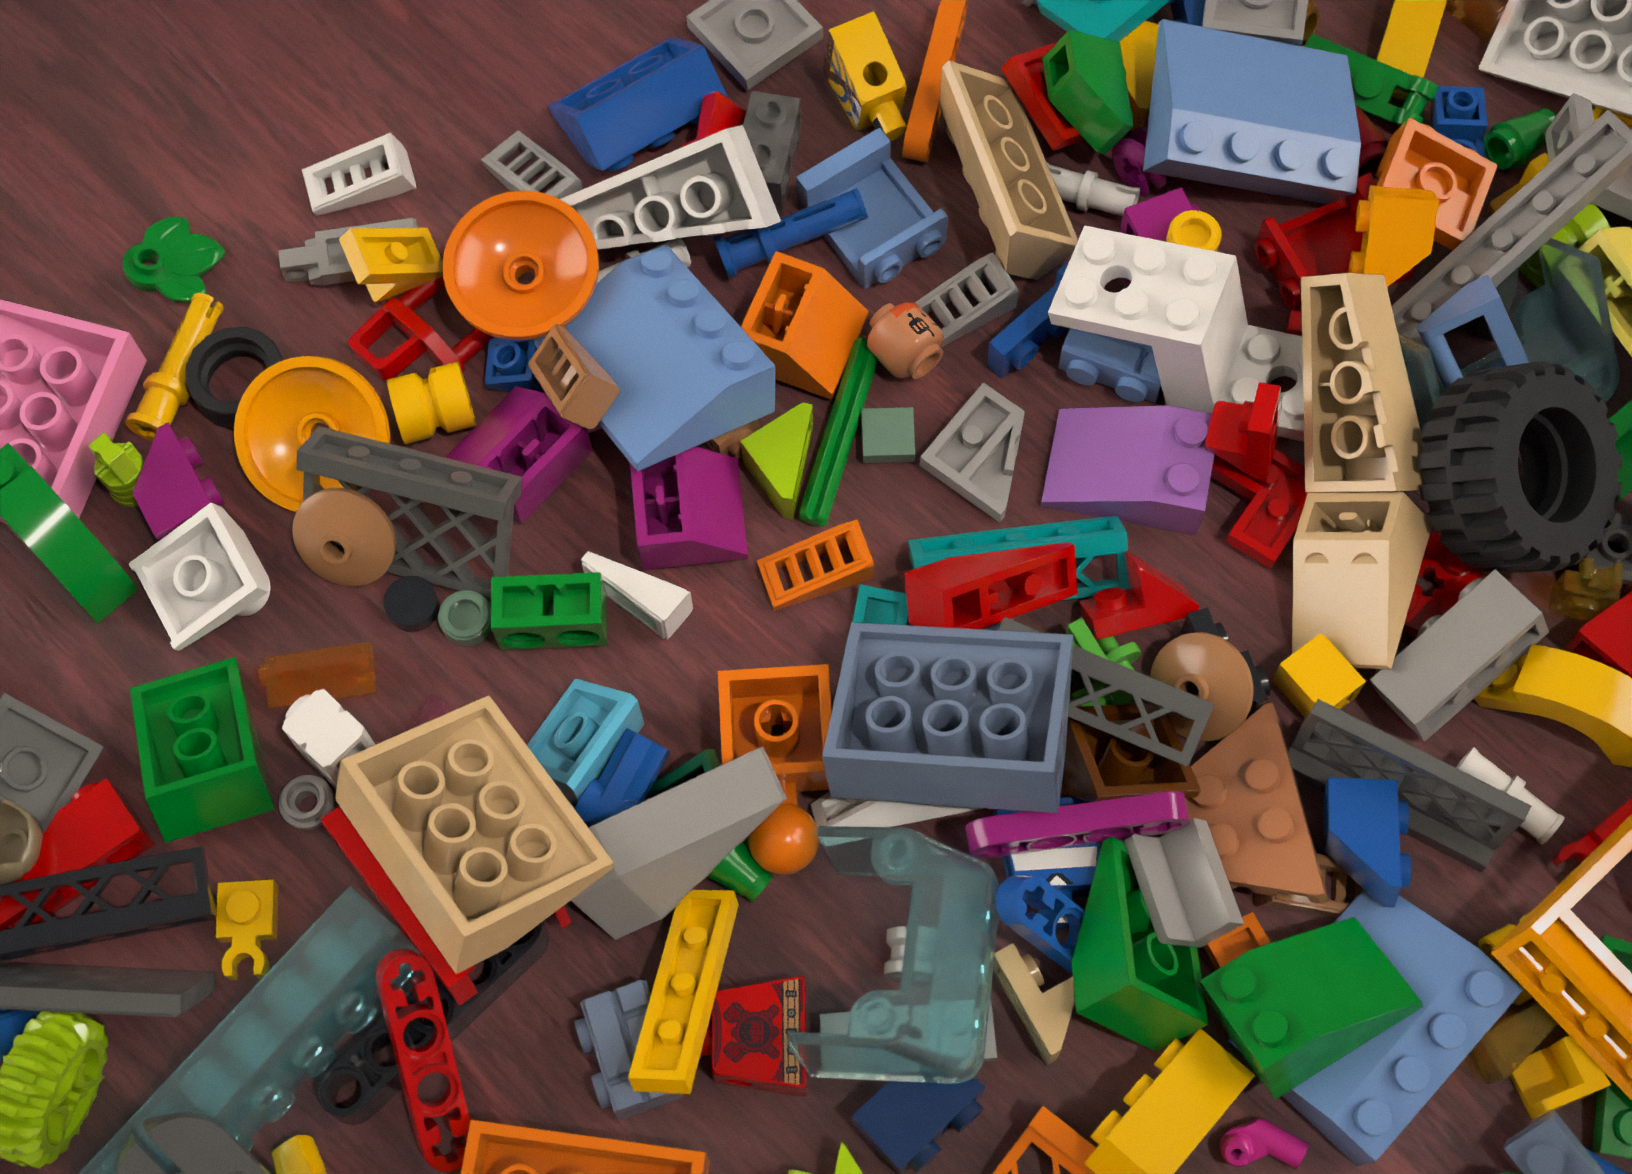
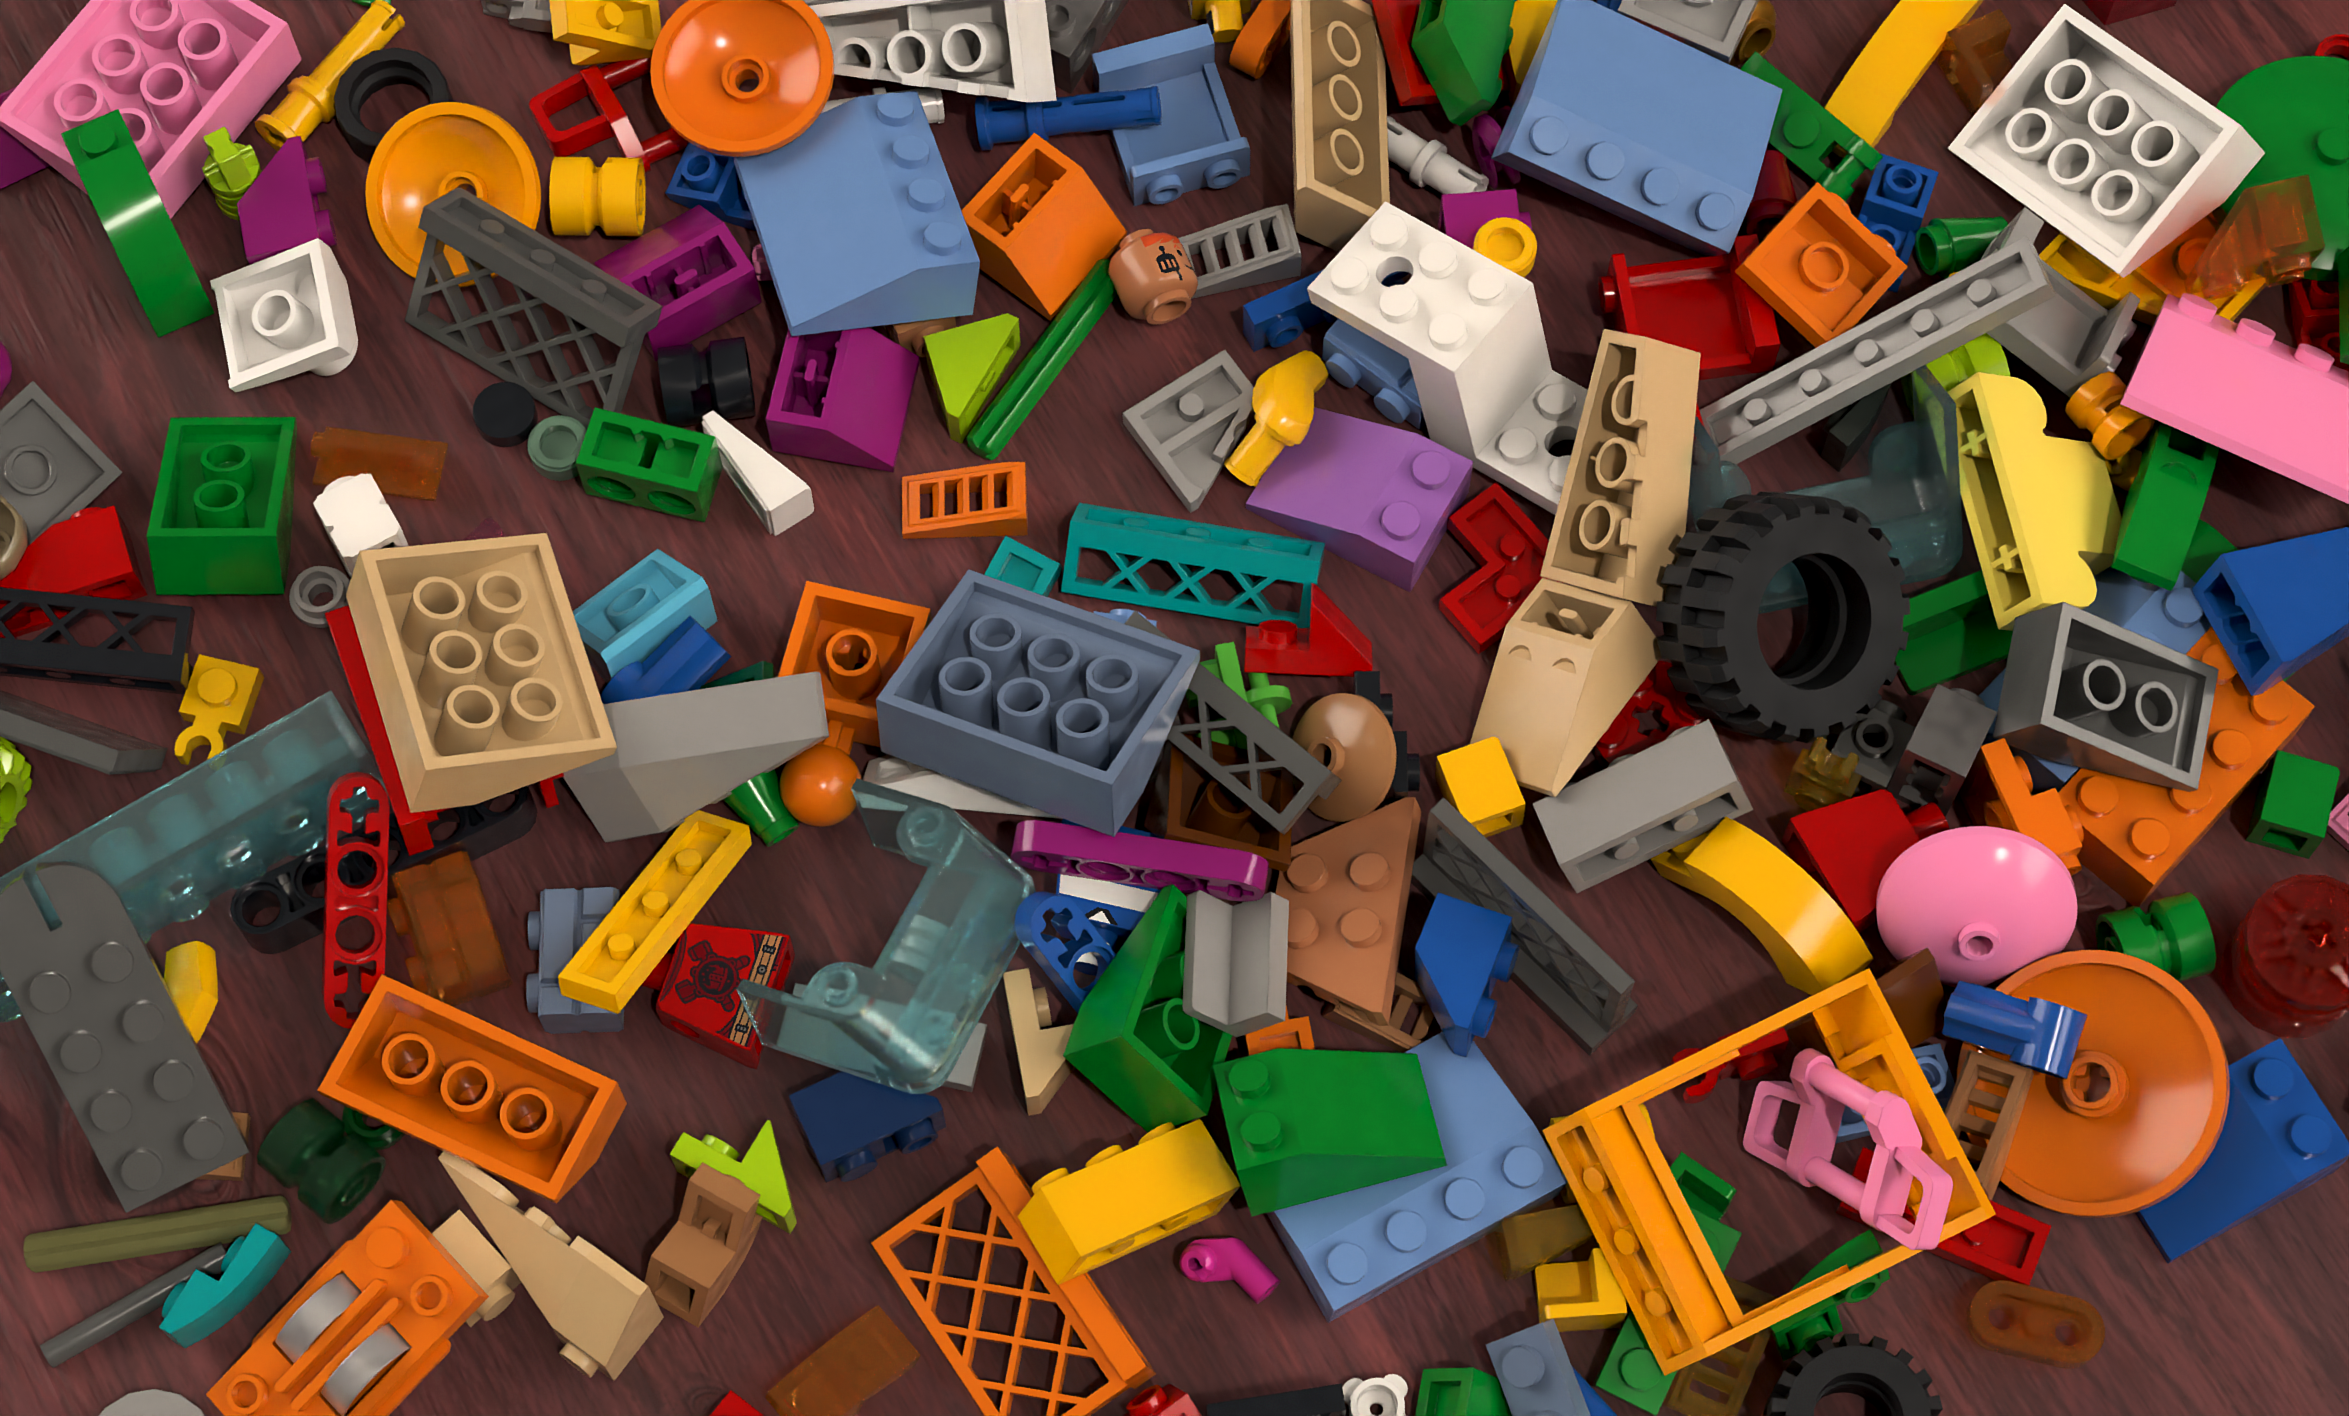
camera: 15 degrees right, 0 degrees up
(356, 525) = (467, 307): medium nougat dish -> none
(511, 1059) = (449, 930): none -> clear orange brick
(572, 528) = (706, 381): none -> black wheel
(577, 383) = (756, 213): medium nougat slope -> none
(888, 435) = (1099, 379): sand green tile -> none
(990, 585) = (1146, 575): red slope -> none
(1051, 420) = (1282, 414): none -> yellow arm
(1247, 432) = (1495, 489): red slope -> none
(1395, 230) = (1745, 309): light orange slope -> none
(1469, 303) = (1821, 420): medium blue tile -> none
(1541, 819) = (1652, 984): white pin -> none

